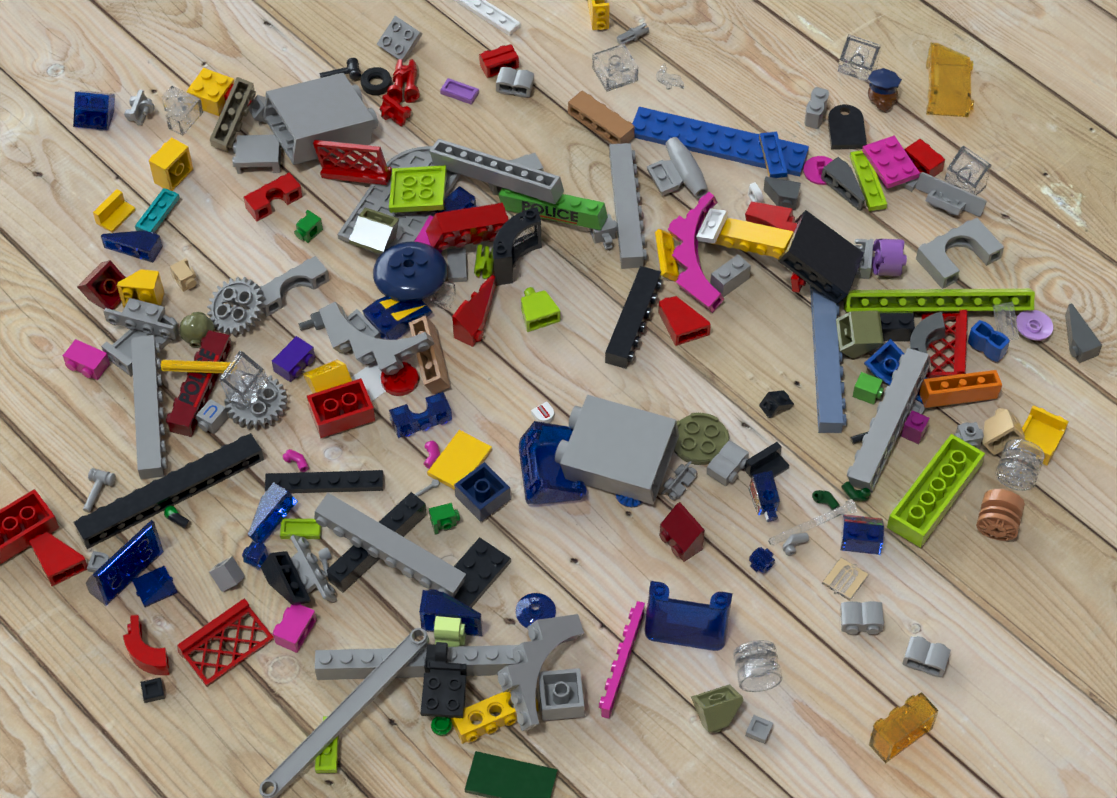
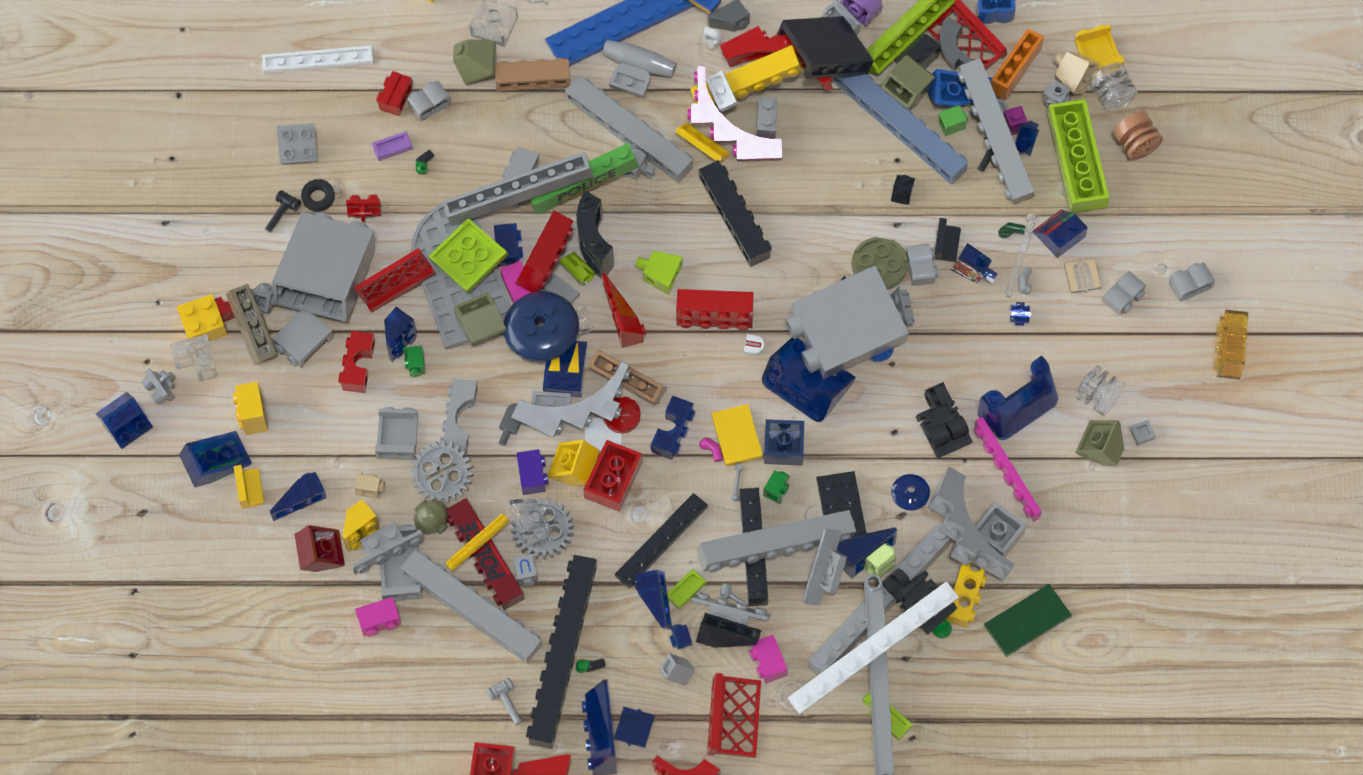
camera: 45 degrees left, 10 degrees up
(96, 561) = (575, 748): light grey tile -> none
(113, 173) = (213, 458): none -> clear blue slope
(157, 211) = (282, 455): teal plate -> none
(243, 260) = (397, 433): none -> light grey panel
(296, 457) = (621, 541): dark pink arm -> none
(314, 196) = (399, 332): none -> clear blue slope
(366, 682) = (872, 648): none -> white plate
(402, 597) = (826, 568): none -> light grey bracket
(404, 74) = (333, 170): red piece -> none
(464, 115) = (421, 162): none -> arm
(541, 362) = (714, 309): none -> red brick
(573, 78) = (475, 59): none -> olive slope
(612, 582) = (942, 423): none -> black plate
(682, 321) = (770, 185): red slope -> none
(682, 533) = (950, 343): dark red slope -> none
(856, 495) = (1027, 207): dark green arm -> none
(908, 444) = (1027, 137): none -> clear blue hips

